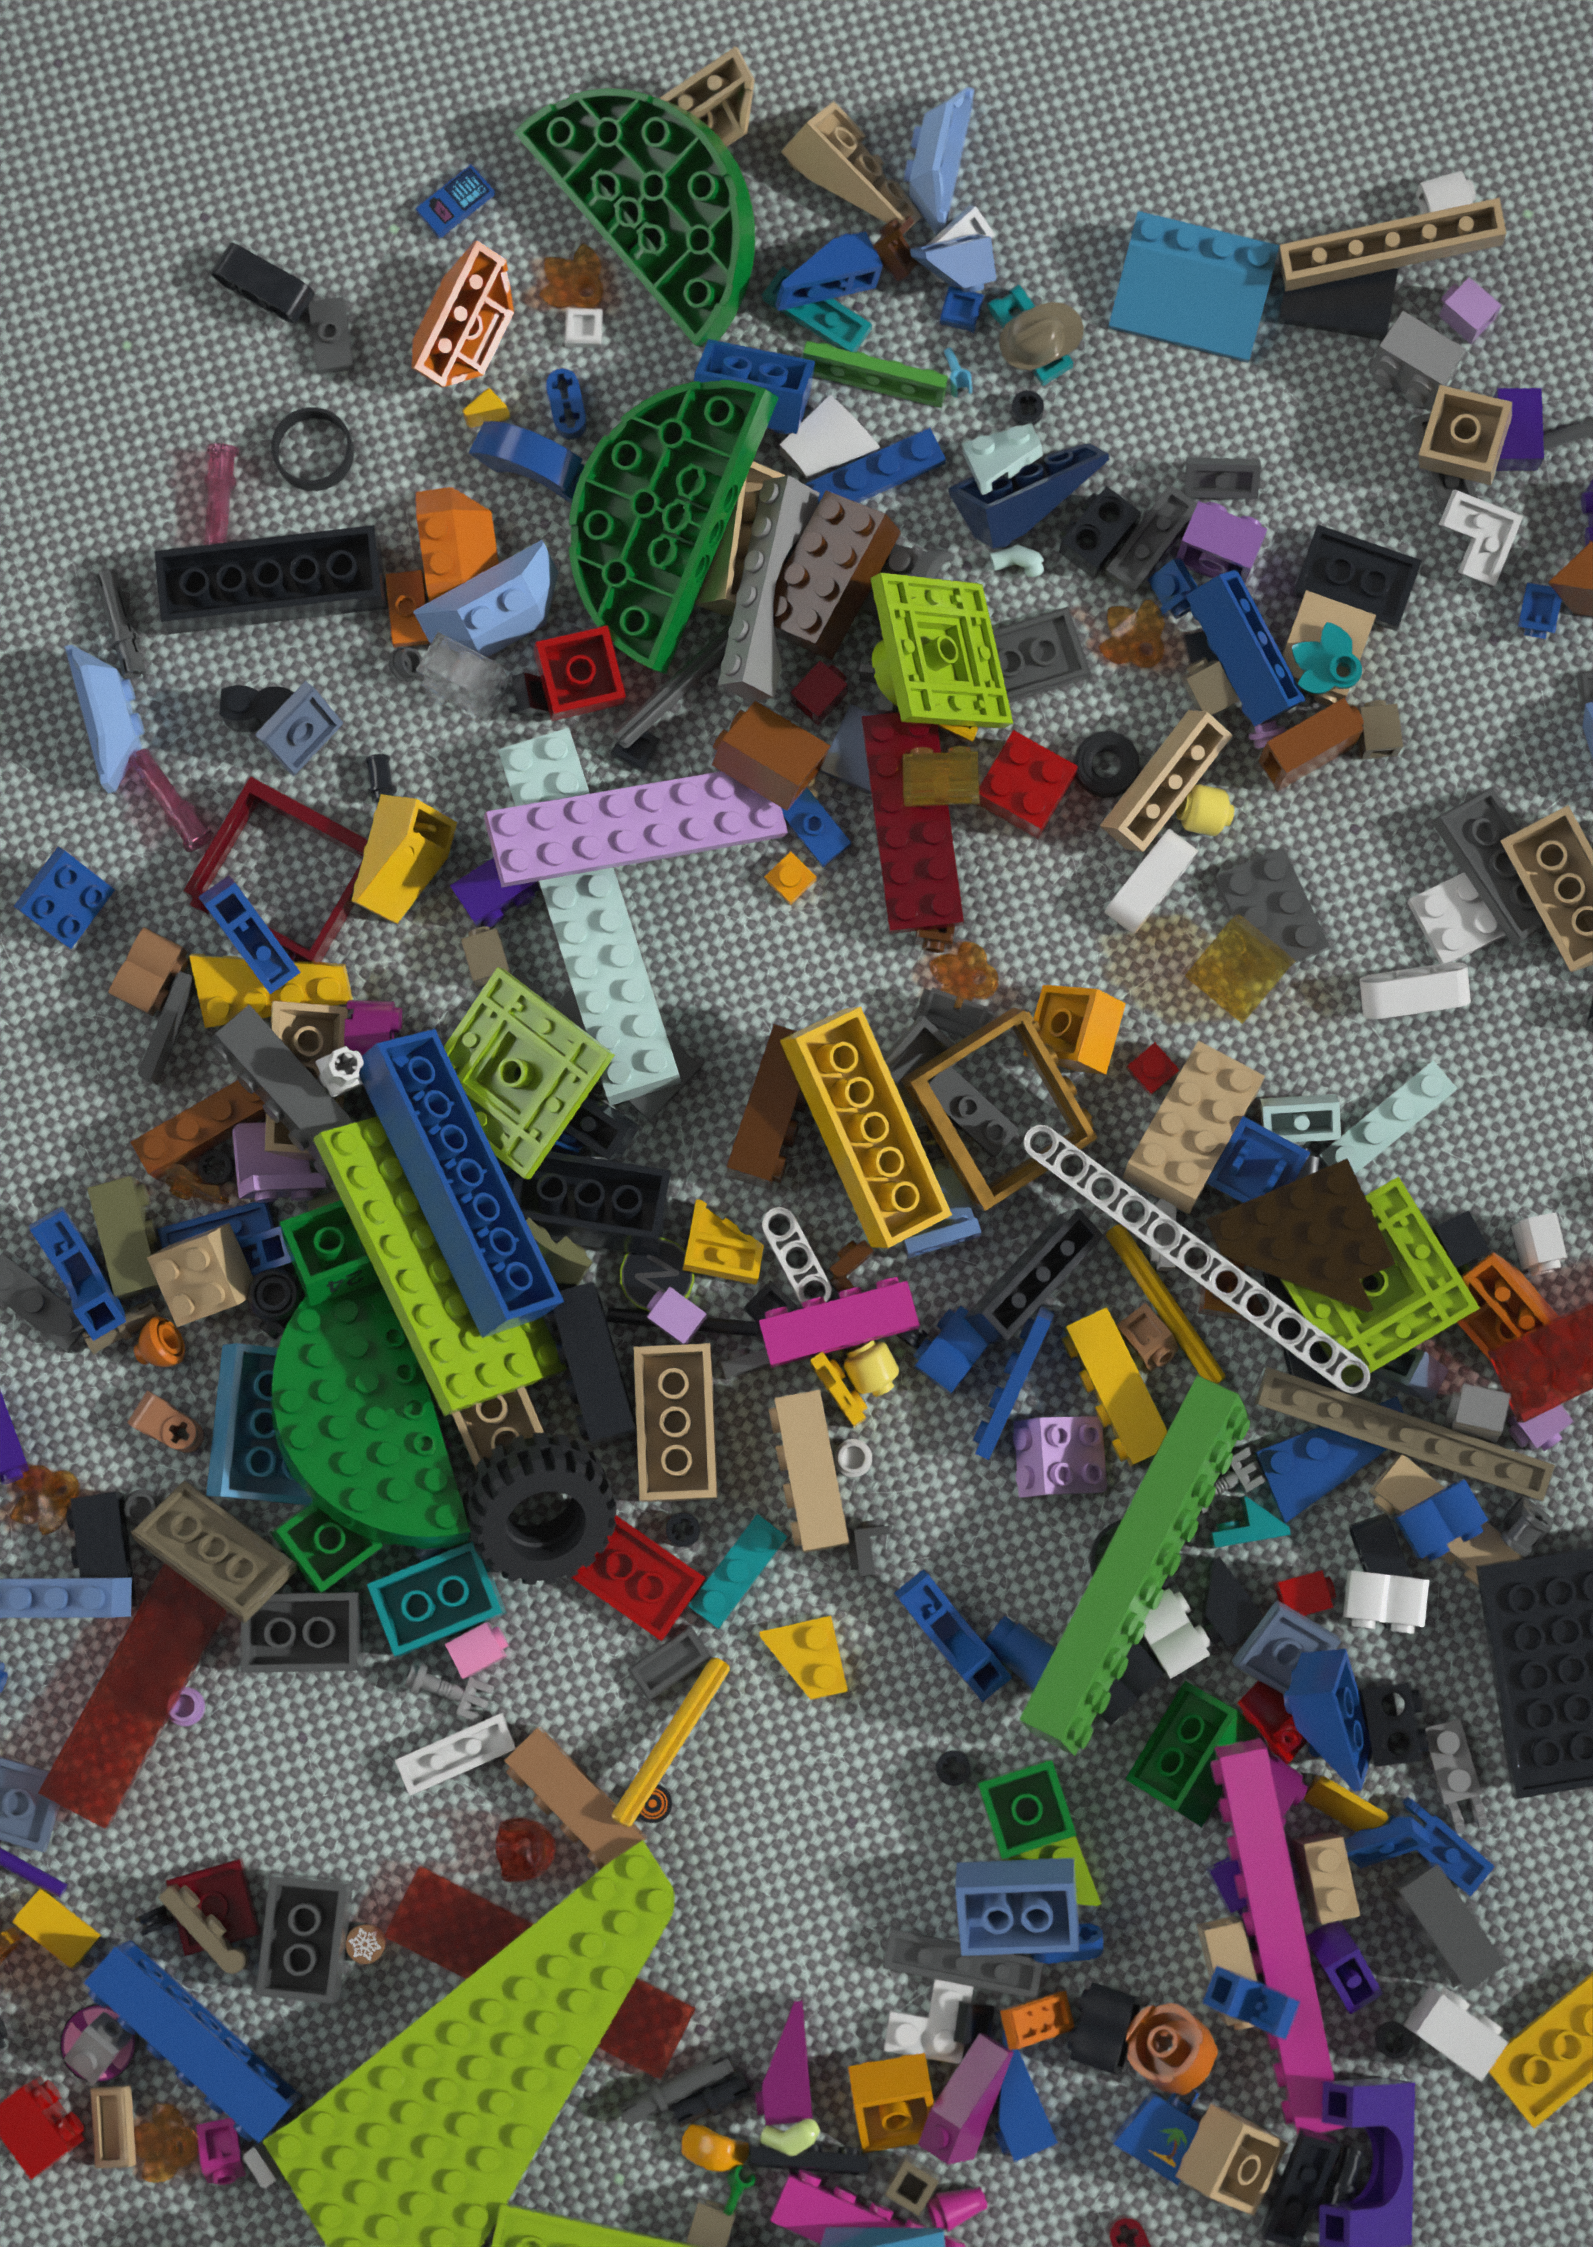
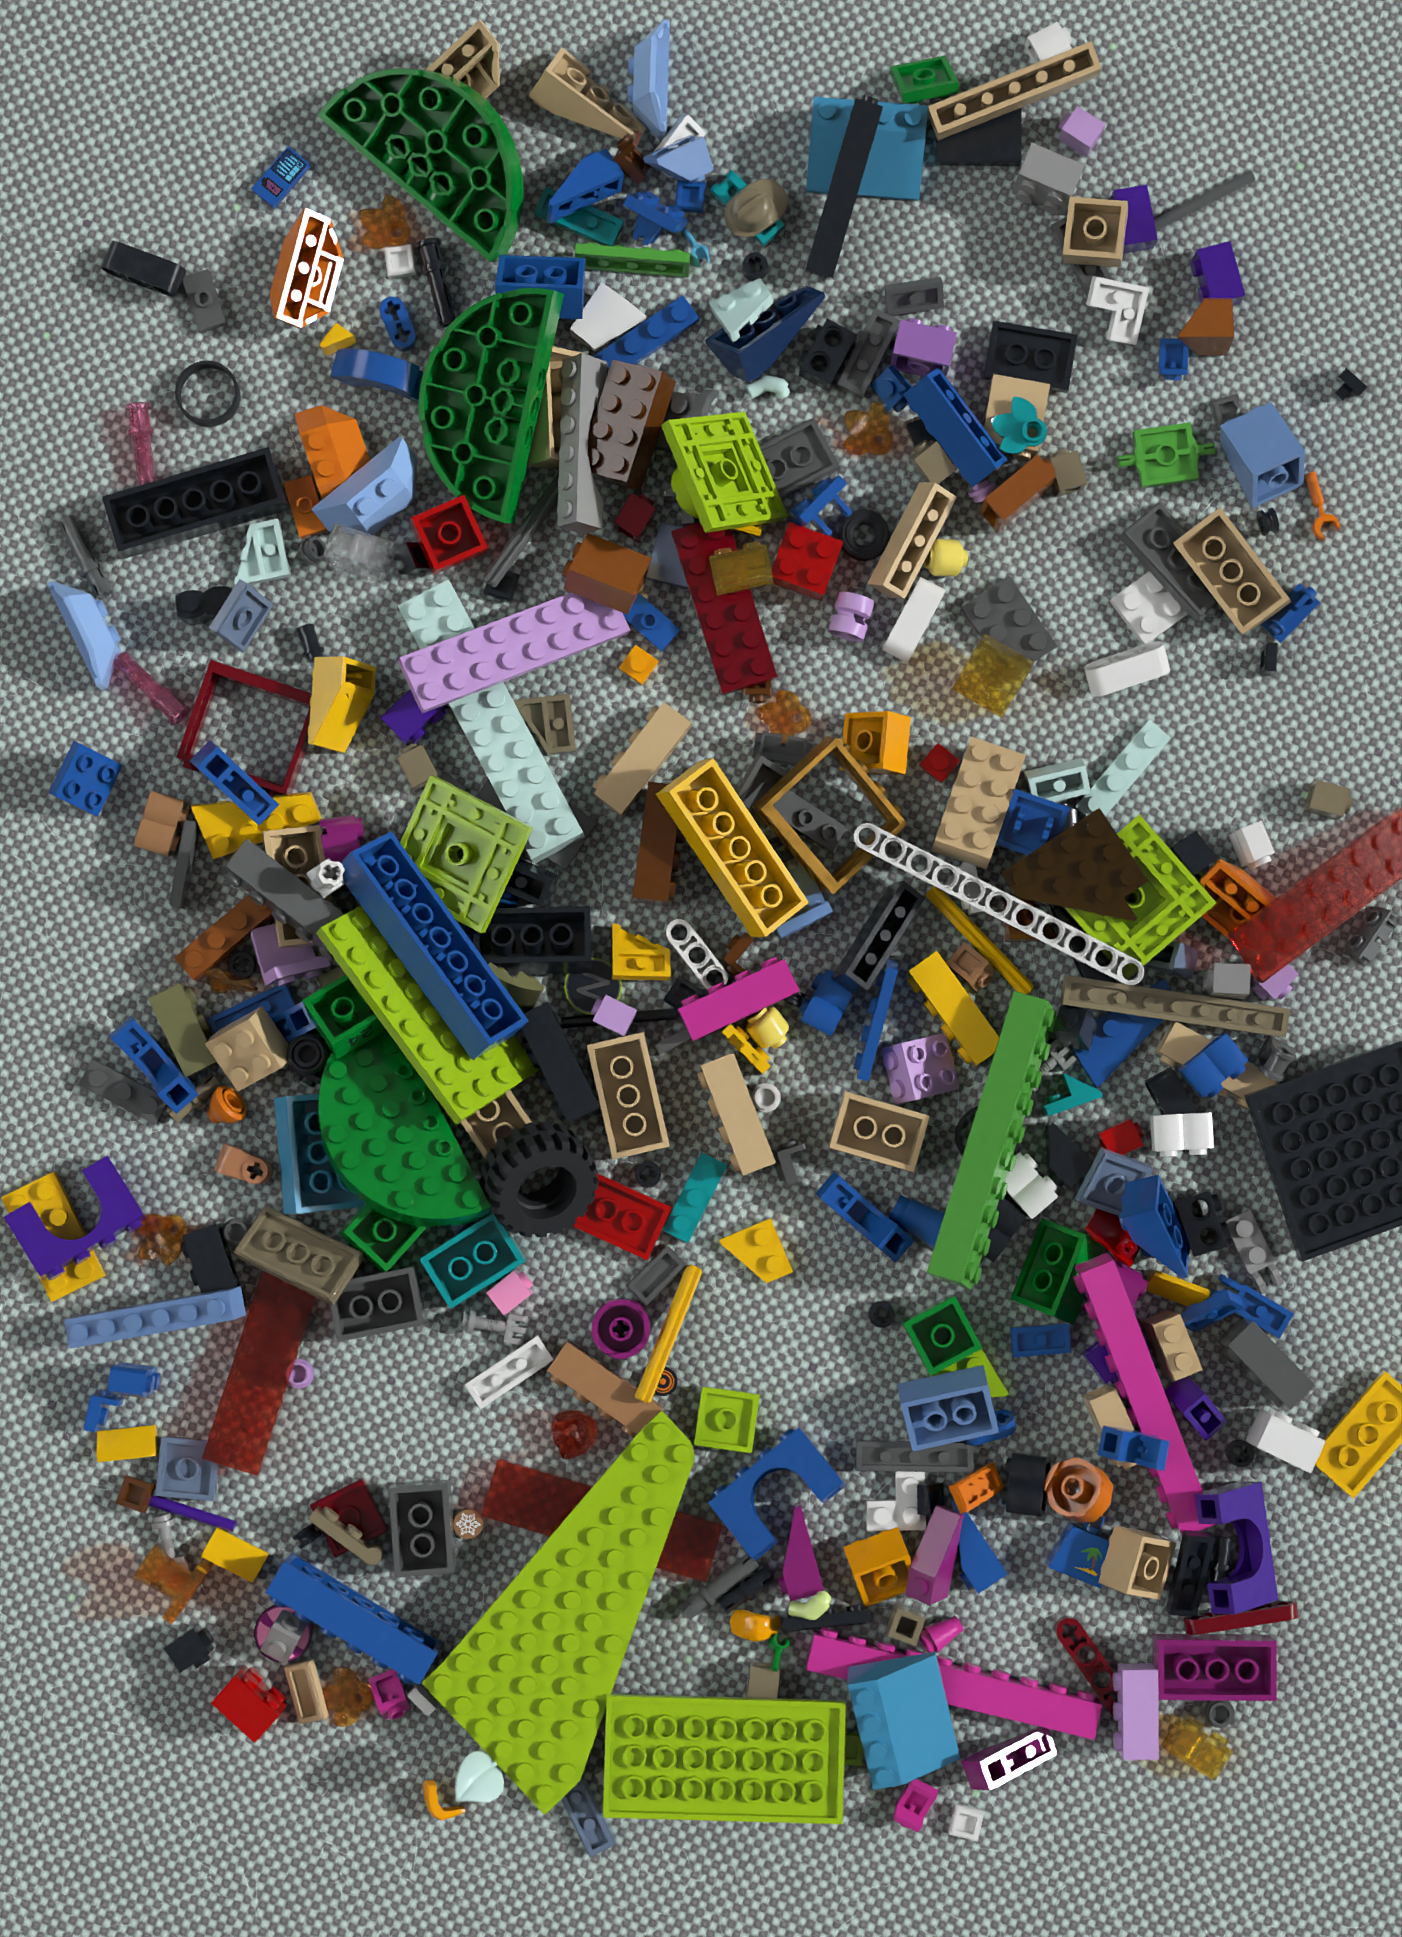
camera: 20 degrees left, 5 degrees up
(344, 658) = (264, 554): none -> light aqua wing
(594, 1738) = (611, 1341): none -> magenta brick
(624, 345) = (434, 269): none -> black pin
(664, 929) = (550, 722): none -> dark tan wing
(719, 1979) = (736, 1502): none -> blue arch
(726, 1869) = (726, 1419): none -> lime plate
(772, 997) = (642, 759): none -> tan brick
(910, 325) = (654, 217): none -> blue plate
(990, 1528) = (878, 1131): none -> tan brick
(1063, 701) = (824, 492): none -> blue plate
(1073, 859) = (851, 616): none -> lavender wheel
(1155, 1840) = (1040, 1340): none -> blue plate
(1156, 327) = (844, 187): none -> black brick
(1269, 1438) = (1075, 1027): none -> black brick
(1281, 214) = (924, 79): none -> green plate
(1510, 730) = (1165, 455): none -> bright green plate

